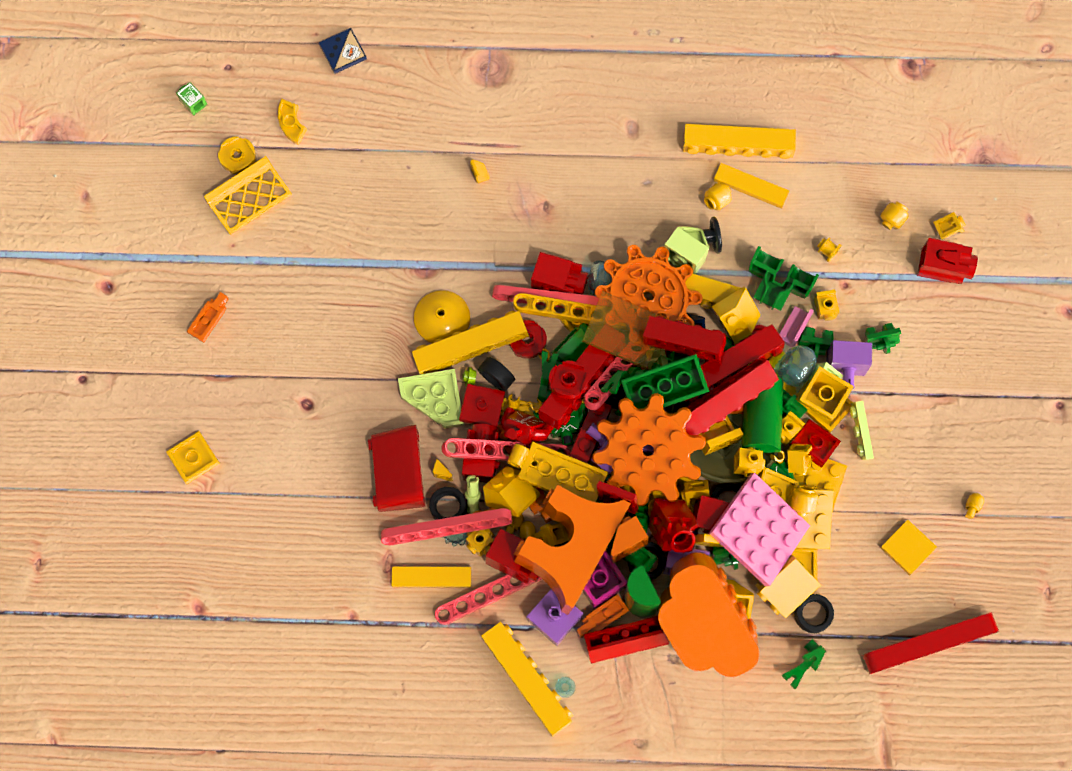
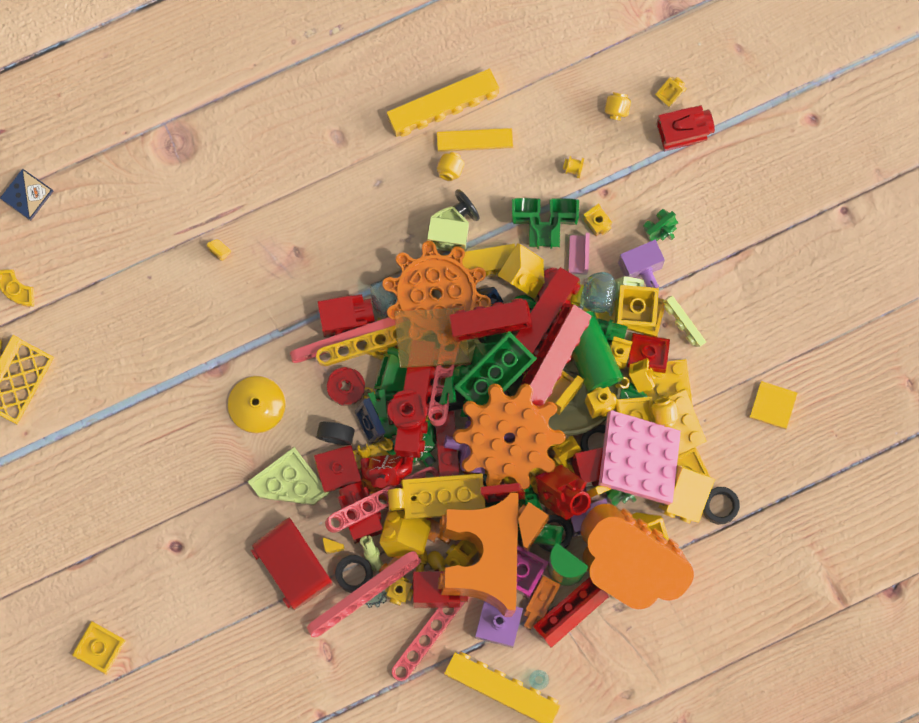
camera: 30 degrees left, 5 degrees up
(208, 317) = (42, 513): orange hinge -> none
(431, 577) = (372, 644): yellow tile -> none
(469, 376) = (311, 447): lime plate -> none
(470, 343) = (296, 417): yellow brick -> none
(531, 378) = (369, 421): none -> dark blue tile
(811, 659) = (740, 545): green piece -> none
(818, 345) = (597, 261): green hips -> none
(930, 643) = (831, 480): red beam -> none
(974, 505) = (811, 338): yellow cylinder -> none

